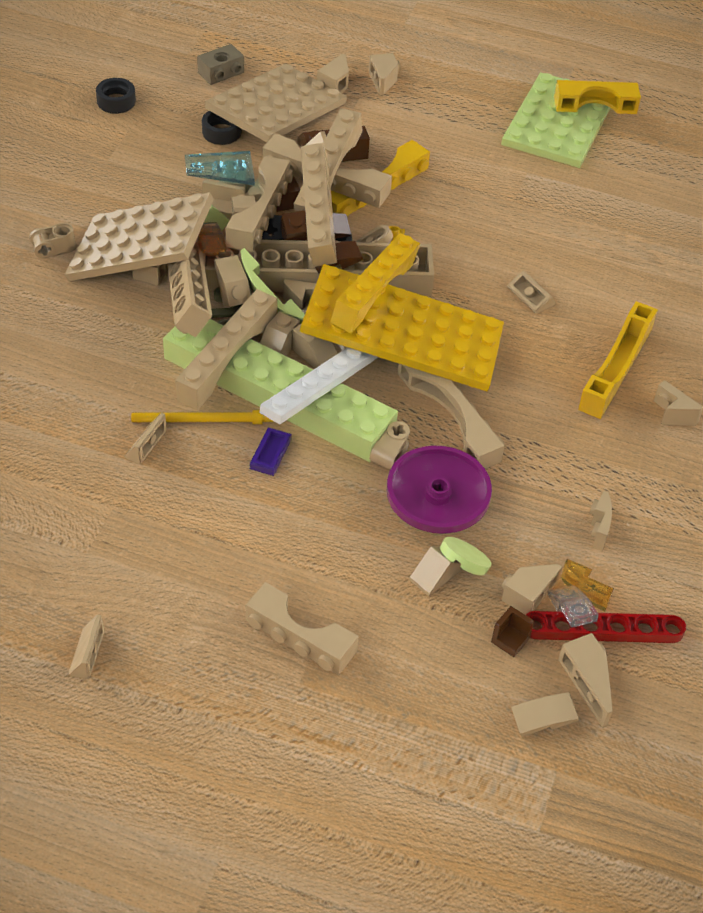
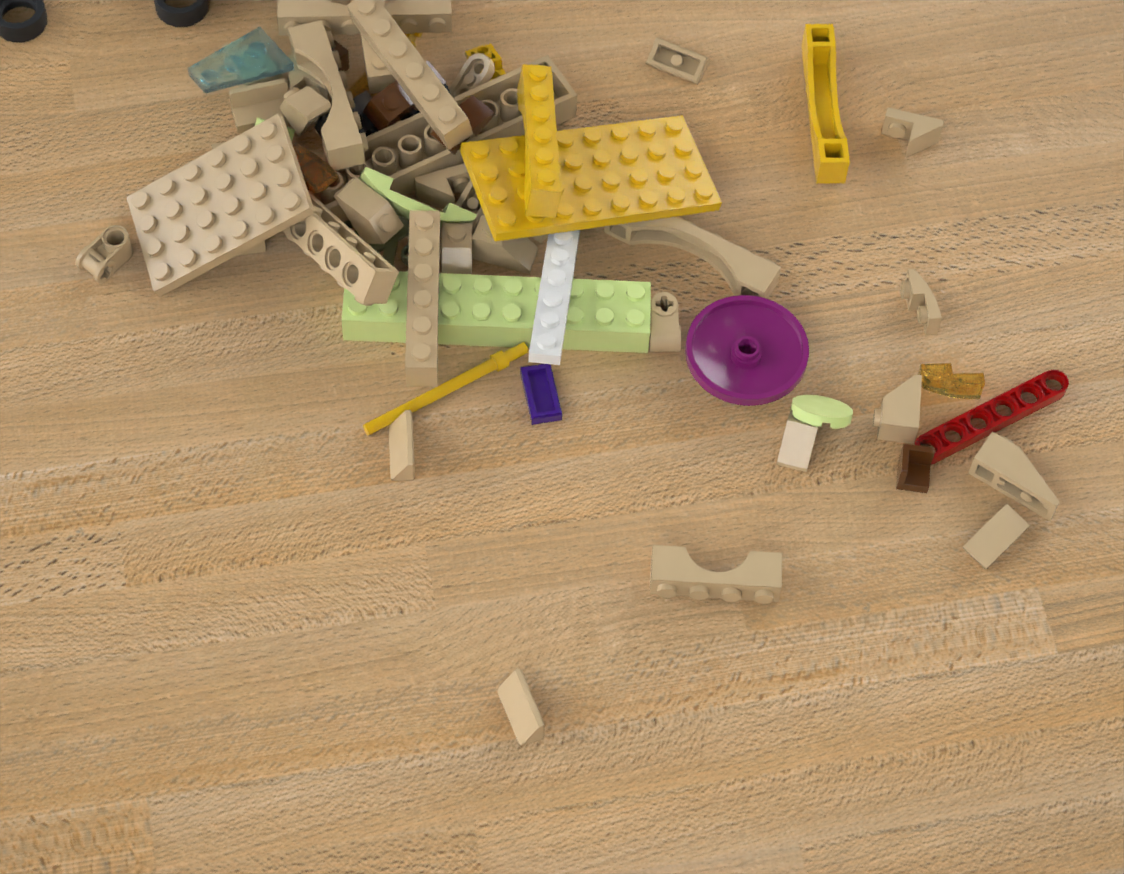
camera: 30 degrees left, 10 degrees up
(574, 605) = (955, 408): clear slope -> none

